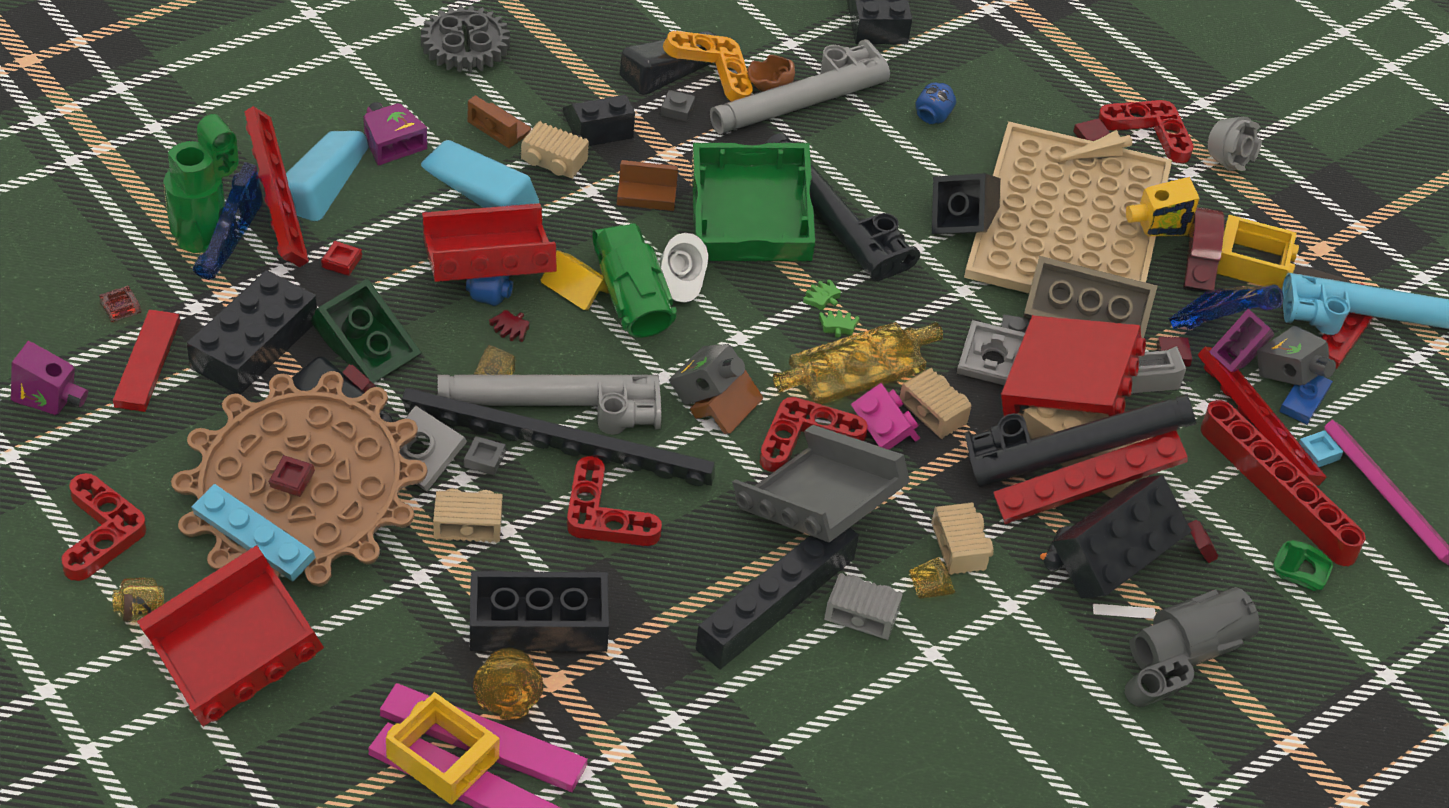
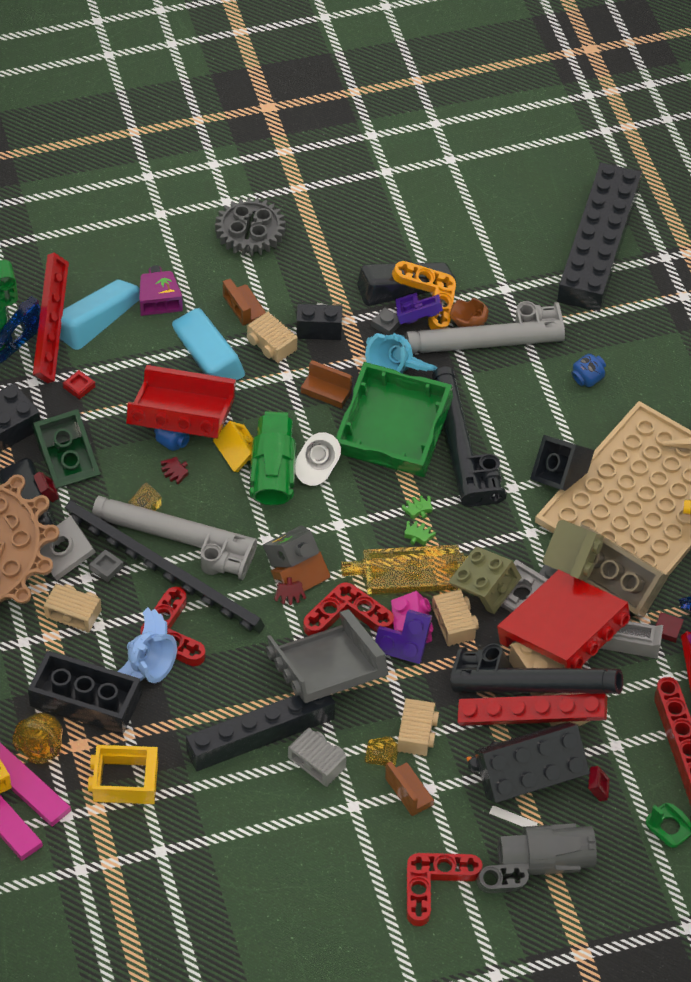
camera: 25 degrees right, 5 degrees up
(599, 536) = (153, 651): none -> light blue helmet
(632, 672) = (125, 756): none -> yellow window
(705, 84) = (411, 308): none -> dark purple plate
(708, 127) = (393, 353): none -> medium azure helmet
(727, 426) = (289, 590): none -> dark red piece
(905, 433) = (410, 642): none -> dark purple plate
(953, 343) = (487, 577): none -> olive bracket
(987, 612) = (408, 788): none -> dark orange panel
(1043, 286) = (573, 550): none -> olive bracket
(1066, 710) = (424, 877): none -> red beam

